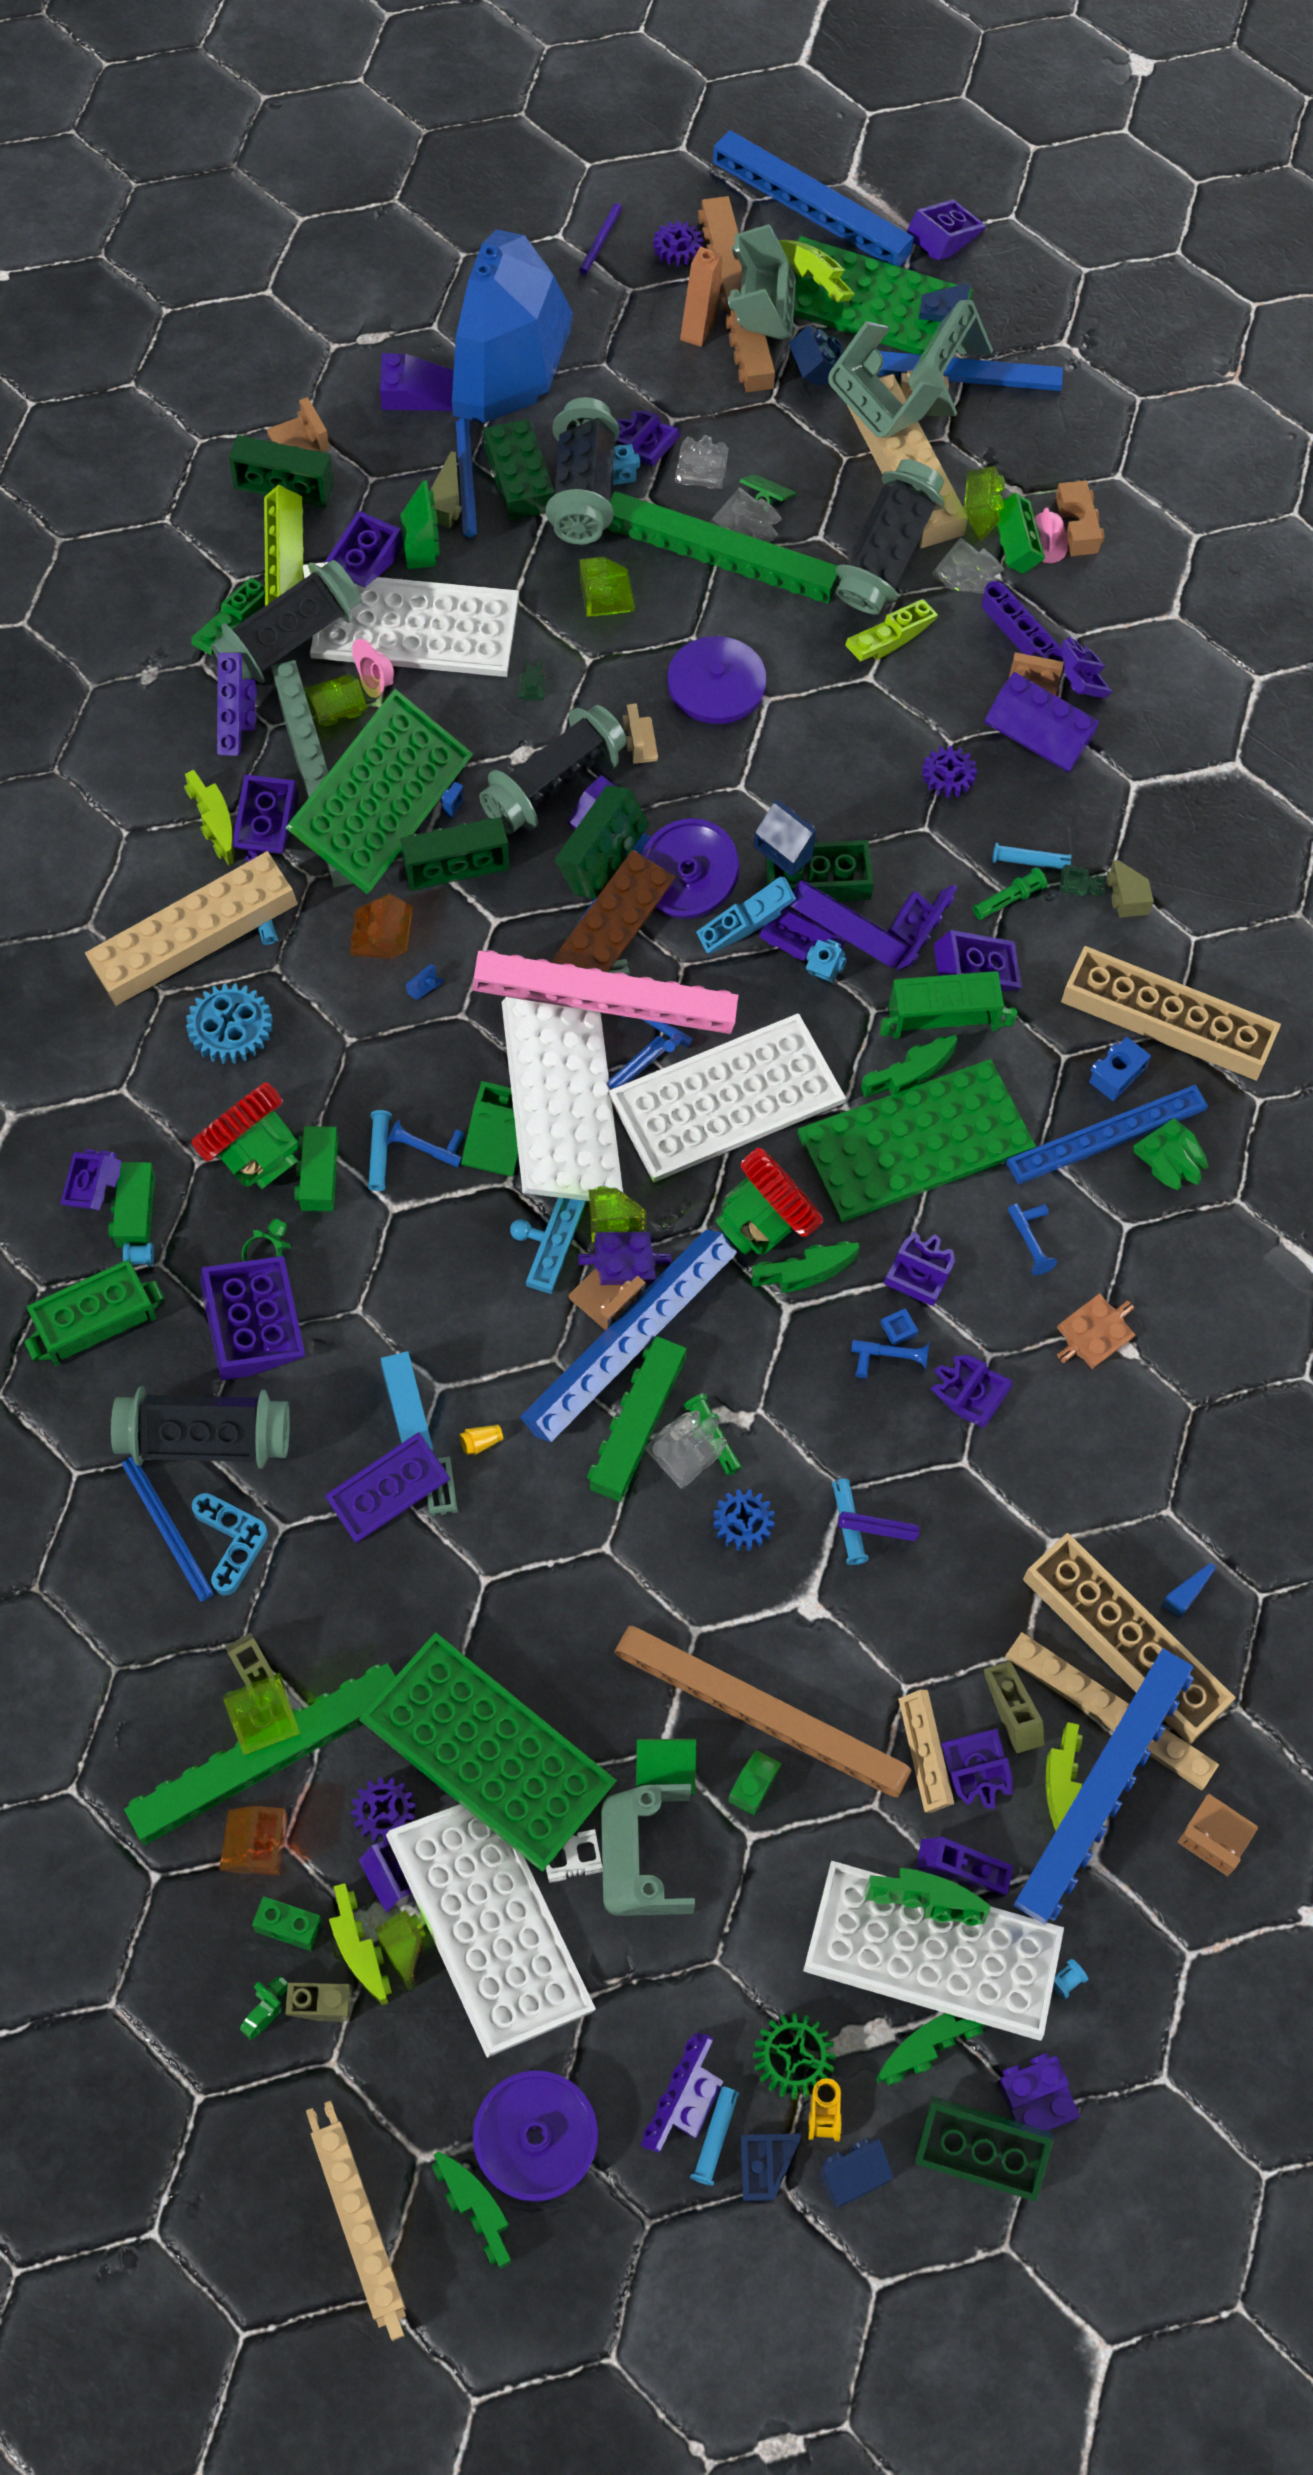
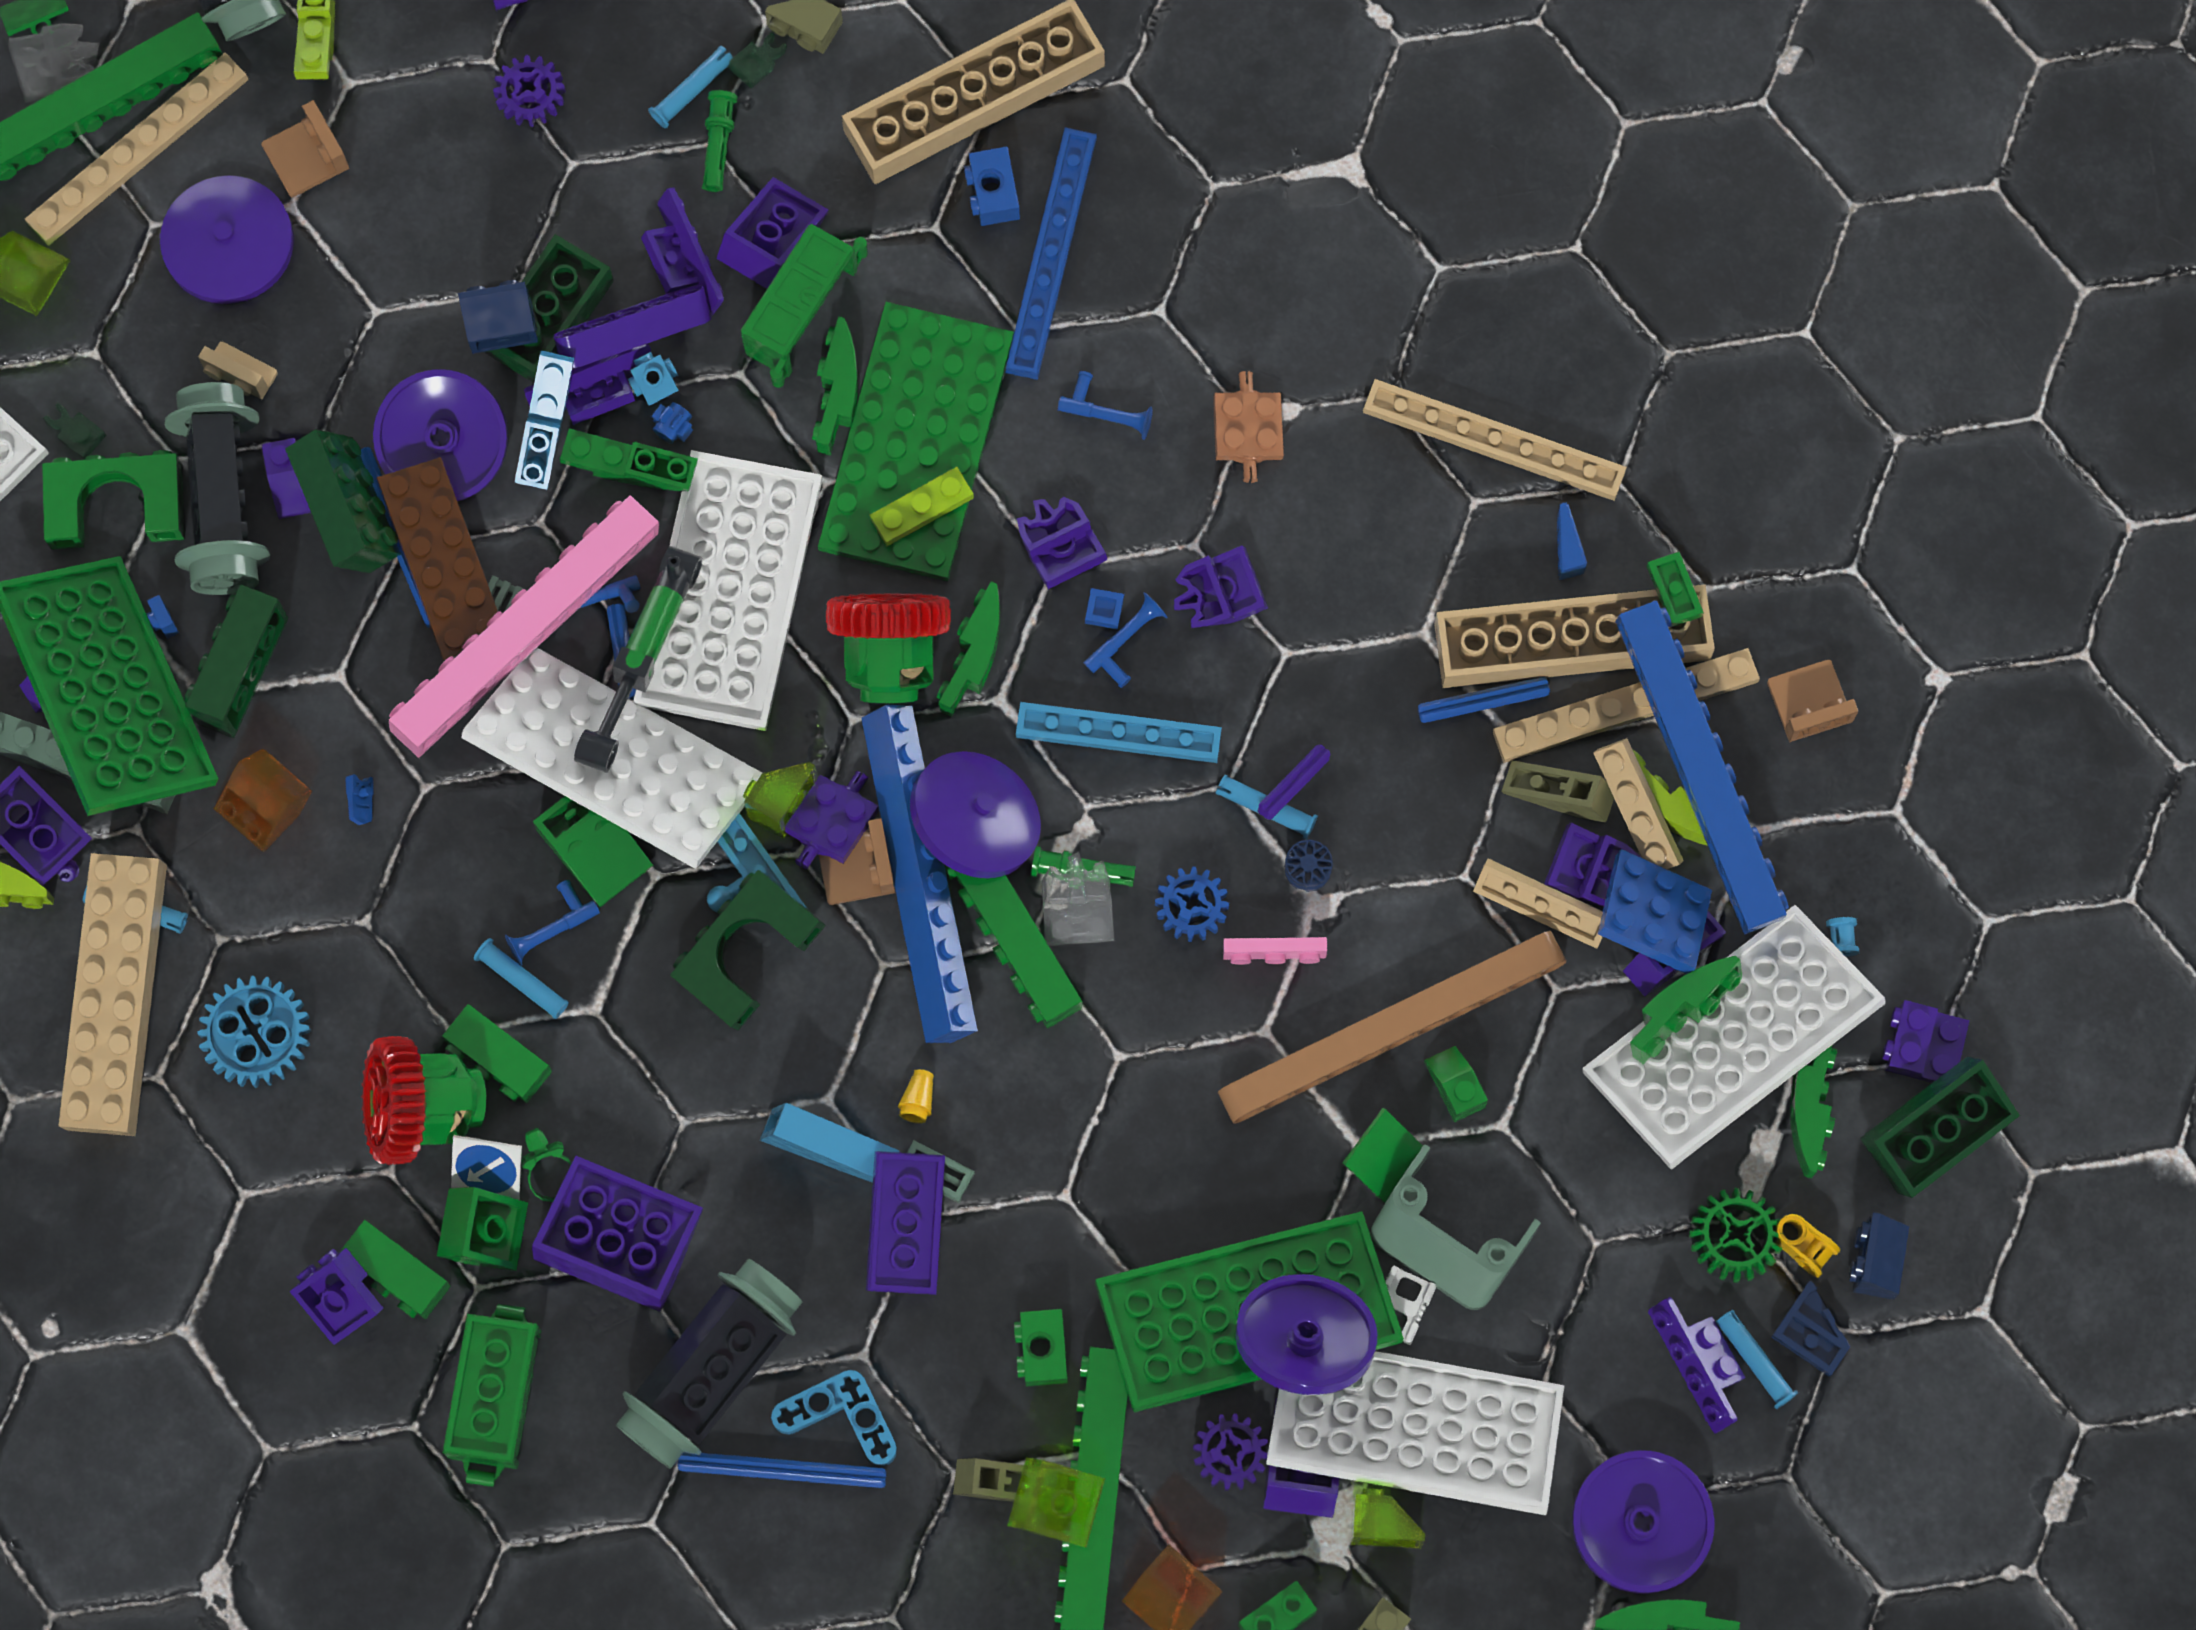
camera: 50 degrees left, 10 degrees up
(139, 1254) = (456, 1302): dark azure bush -> none
(198, 1237) = (482, 1228): none -> green slope
(238, 1211) = (486, 1166): none -> piece
(360, 1650) = (1045, 1326): none -> green brick
(361, 1956) = (1361, 1571): lime slope -> none
(466, 1249) = (703, 968): none -> dark green arch
(493, 1794) = (1306, 1334): none -> dark purple dish
(496, 698) = (70, 484): none -> green arch
(631, 1067) = (636, 661): none -> black piece
(694, 1339) = (975, 814): none -> dark purple dish
(732, 597) = (136, 149): none -> tan plate
(754, 1595) = (1274, 950): none -> bright pink plate
(760, 982) = (628, 463): none -> green slope
(806, 682) = (305, 153): none -> medium nougat bracket
(807, 990) = (672, 423): none -> blue gear
(824, 1394) = (1118, 732): none -> dark azure plate
(829, 1577) = (1308, 865): none -> dark blue wheel
(873, 1168) = (921, 506): none -> lime plate
(978, 1829) = (1655, 912): none -> blue plate
(1037, 1612) = (1483, 699): none -> blue axle
(1043, 1765) = (1638, 804): none -> tan plate
(1172, 1154) = (1122, 208): green plate -> none
(1214, 1677) = (1675, 588): none -> green plate
(1220, 1494) = (1494, 439): none -> tan plate

